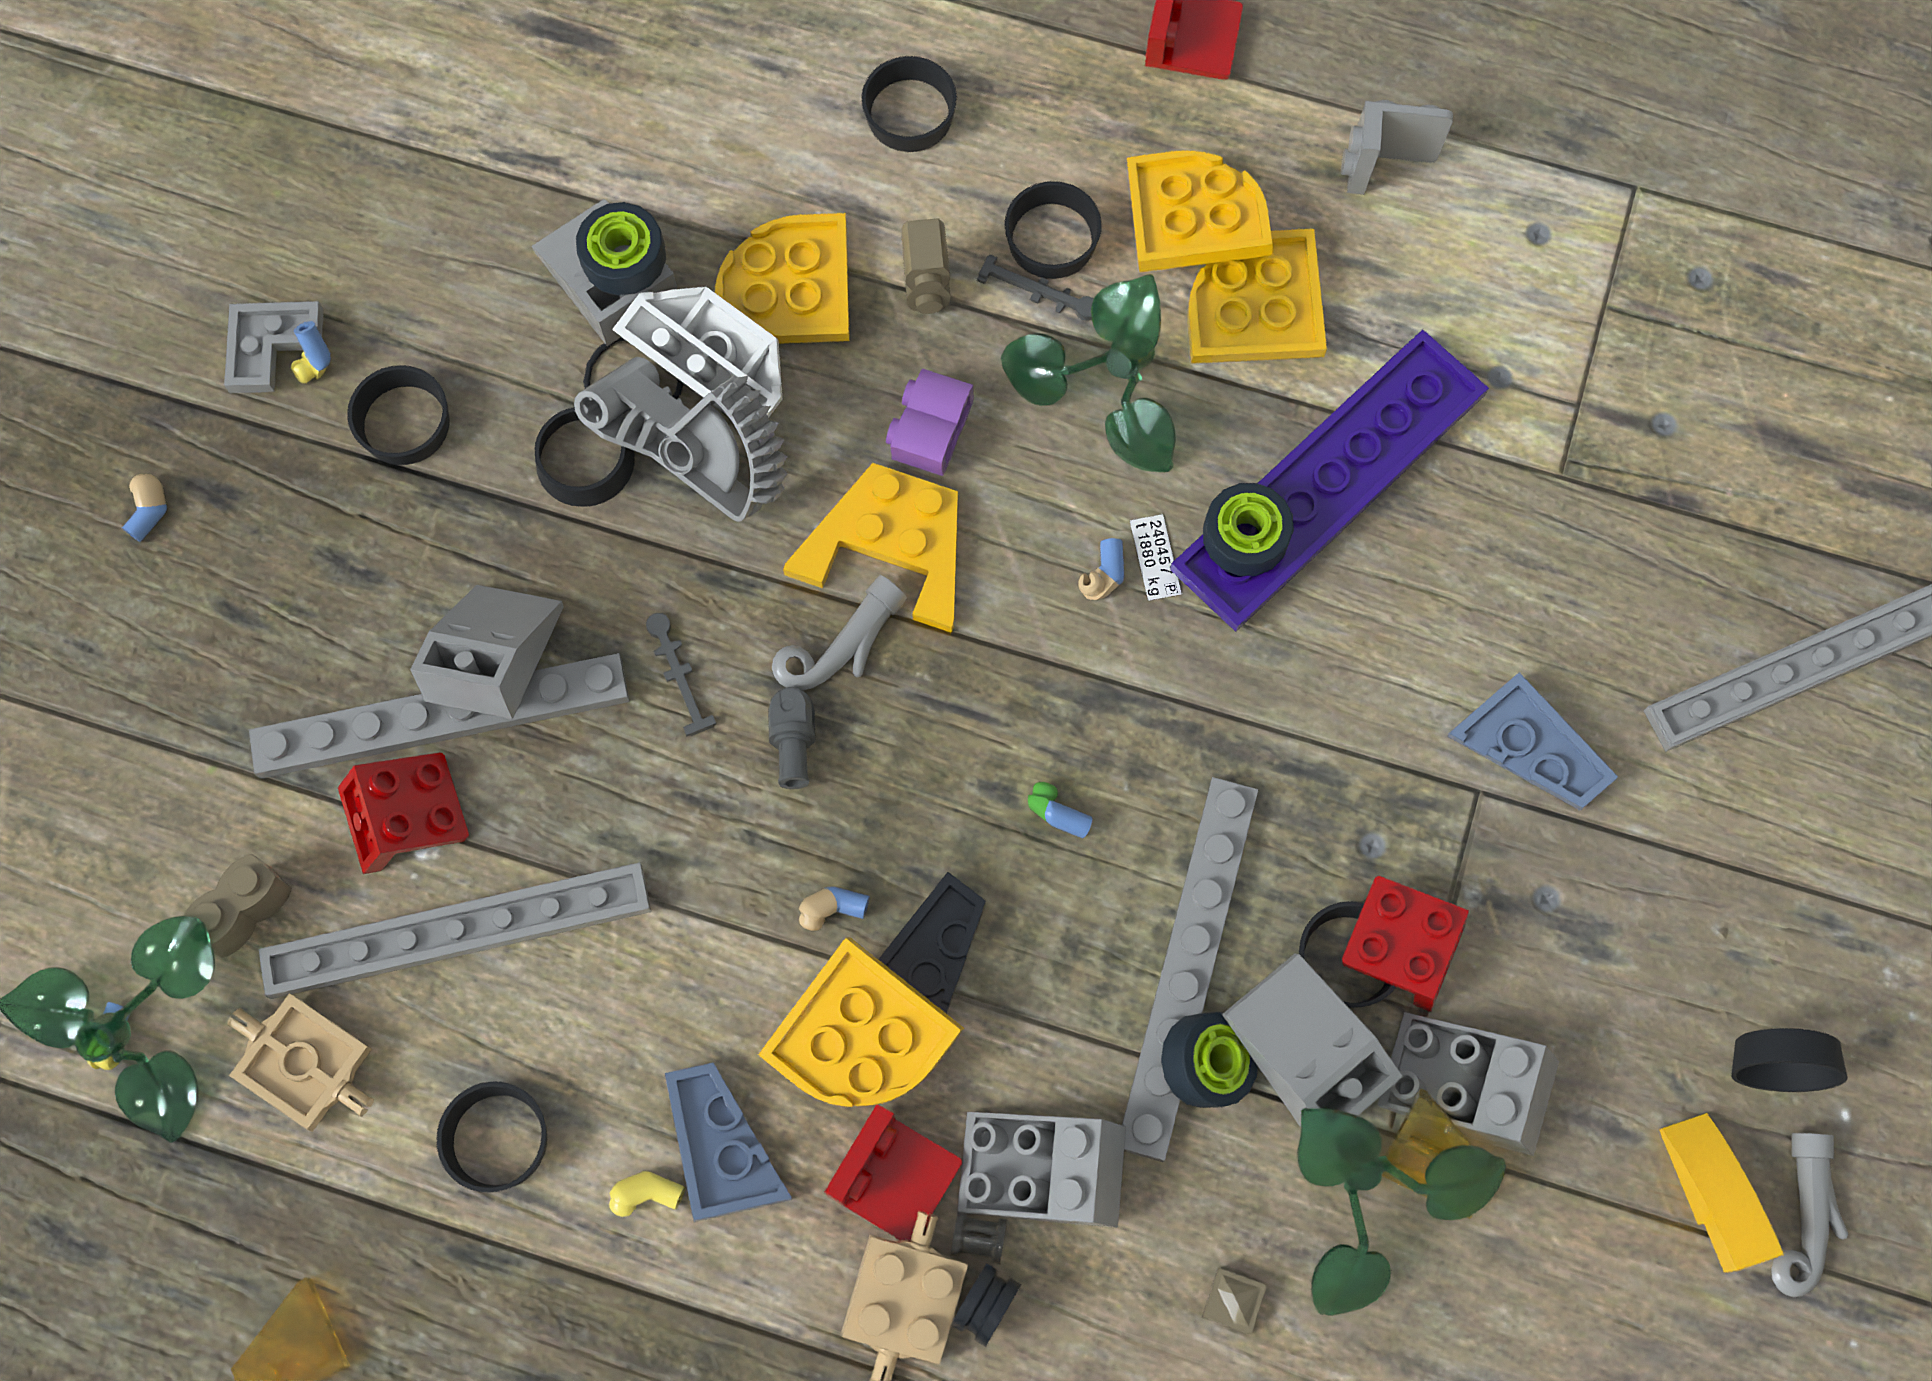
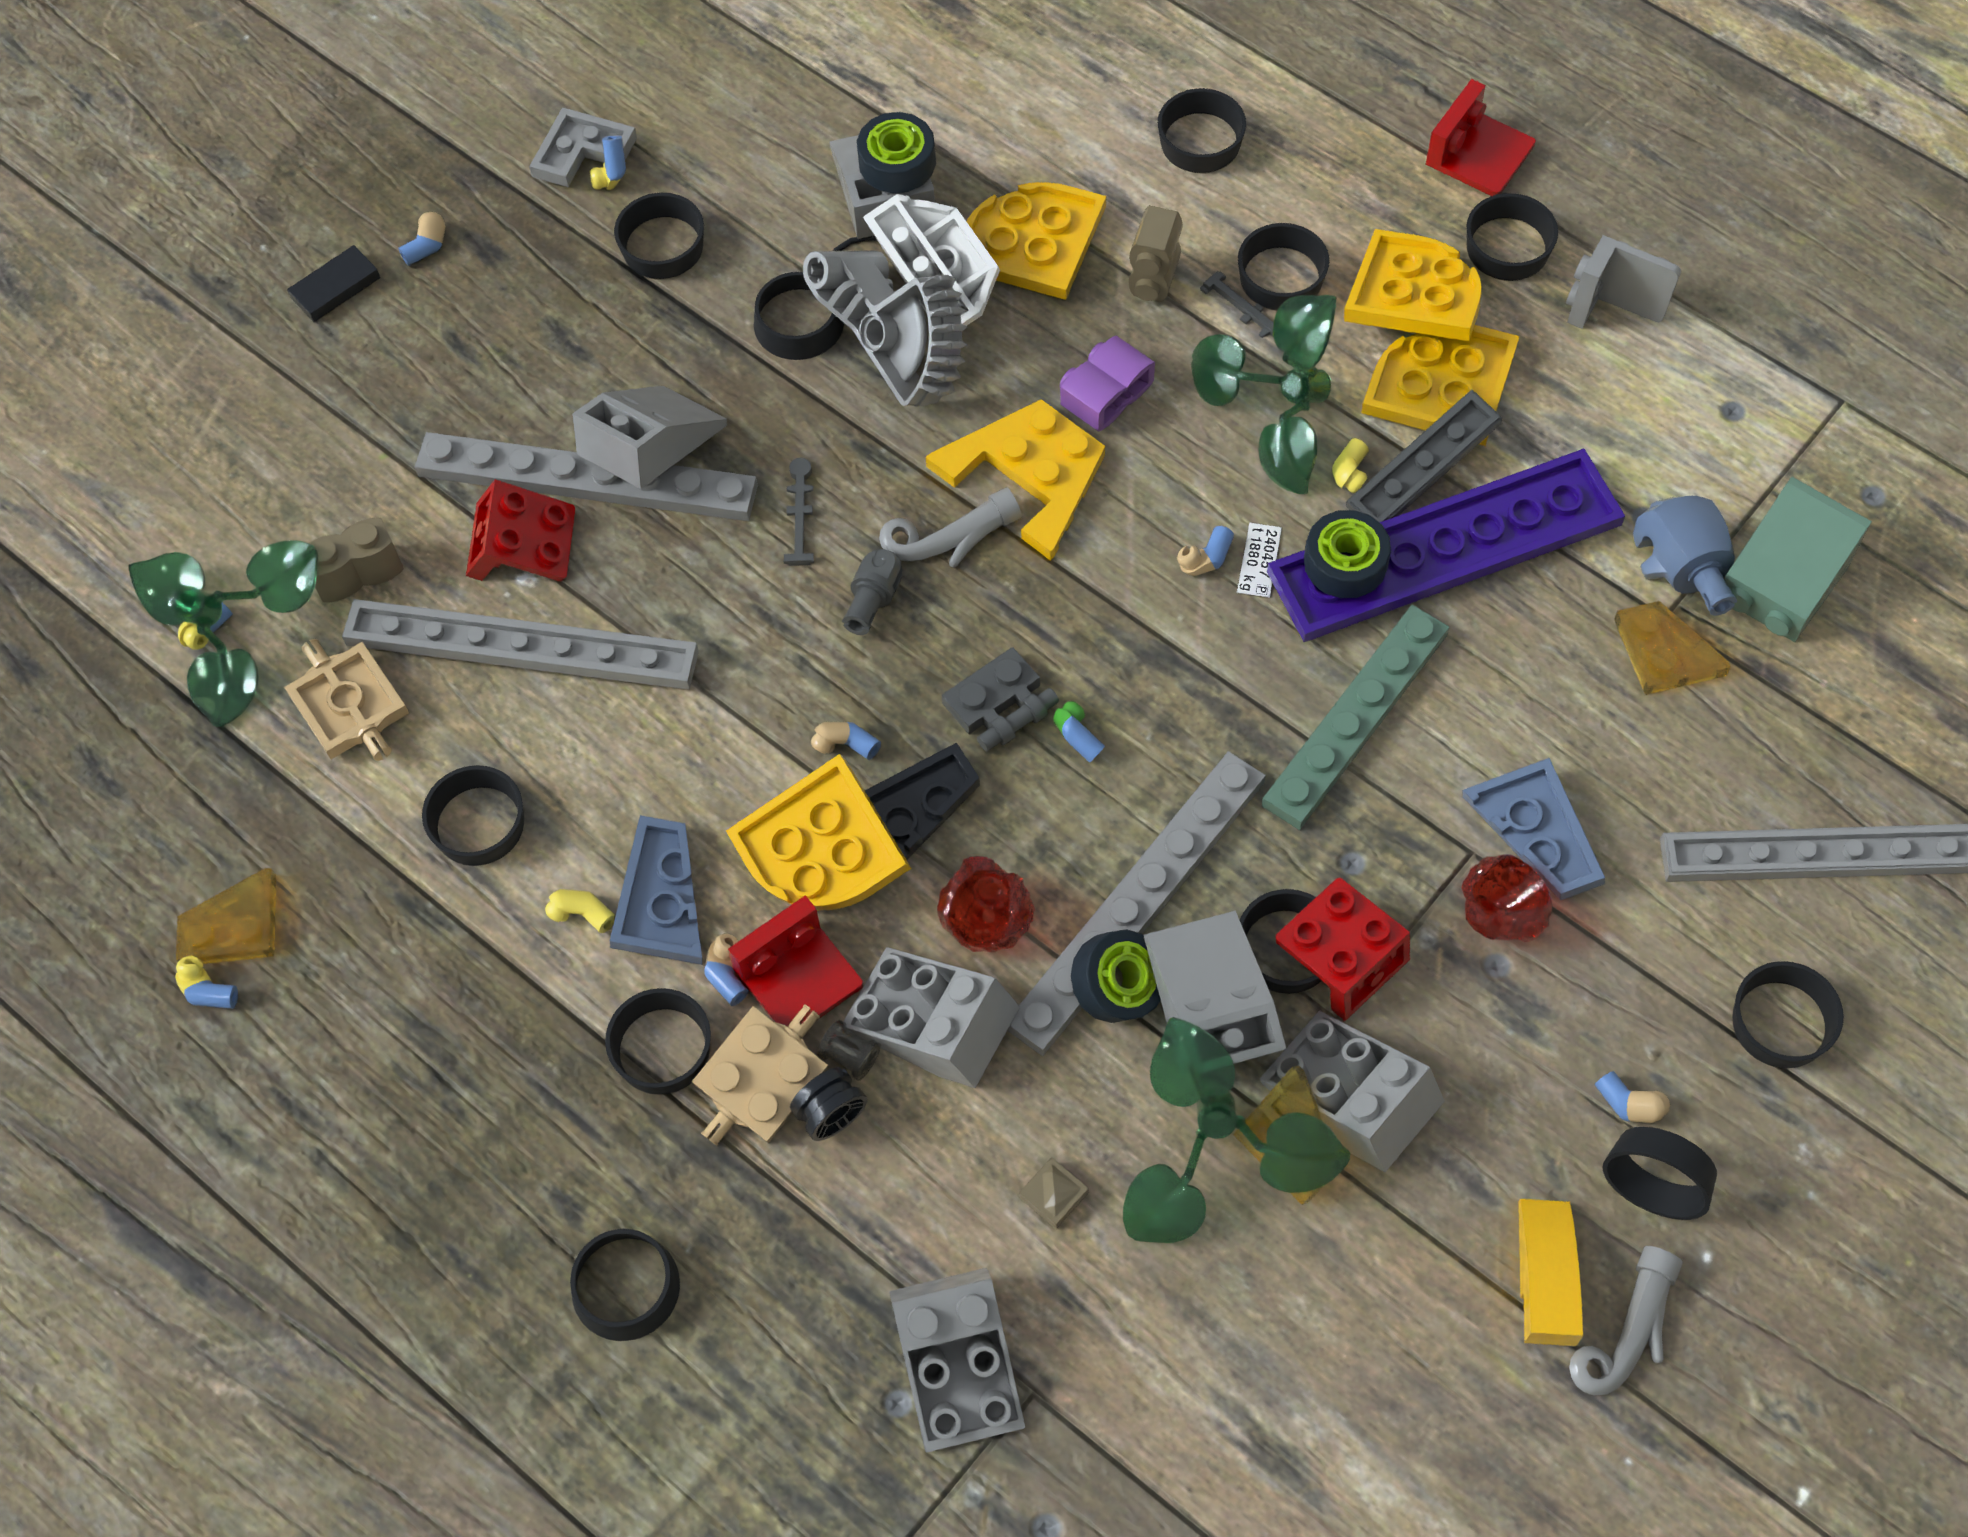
camera: 25 degrees right, 10 degrees down
(68, 592) = (333, 283): none -> black tile
(741, 1293) = (642, 1004): none -> black tyre
(814, 1203) = (721, 972): none -> medium blue arm
(956, 796) = (994, 689): none -> dark grey plate
(1051, 1037) = (985, 906): none -> clear red hair
(1202, 430) = (1345, 466): none -> light yellow arm
(1270, 86) = (1514, 207): none -> black tyre
(1276, 398) = (1426, 459): none -> dark grey tile
(1316, 693) = (1355, 717): none -> sand green plate
(1539, 836) = (1506, 899): none -> clear red hair
(1563, 402) = (1689, 548): none -> sand blue piece
(1575, 511) = (1666, 649): none -> clear yellow wing
(1664, 381) = (1795, 558): none -> sand green slope
(1727, 994) = (1633, 1105): none -> arm
(1865, 828) = (1804, 979): none -> black tyre

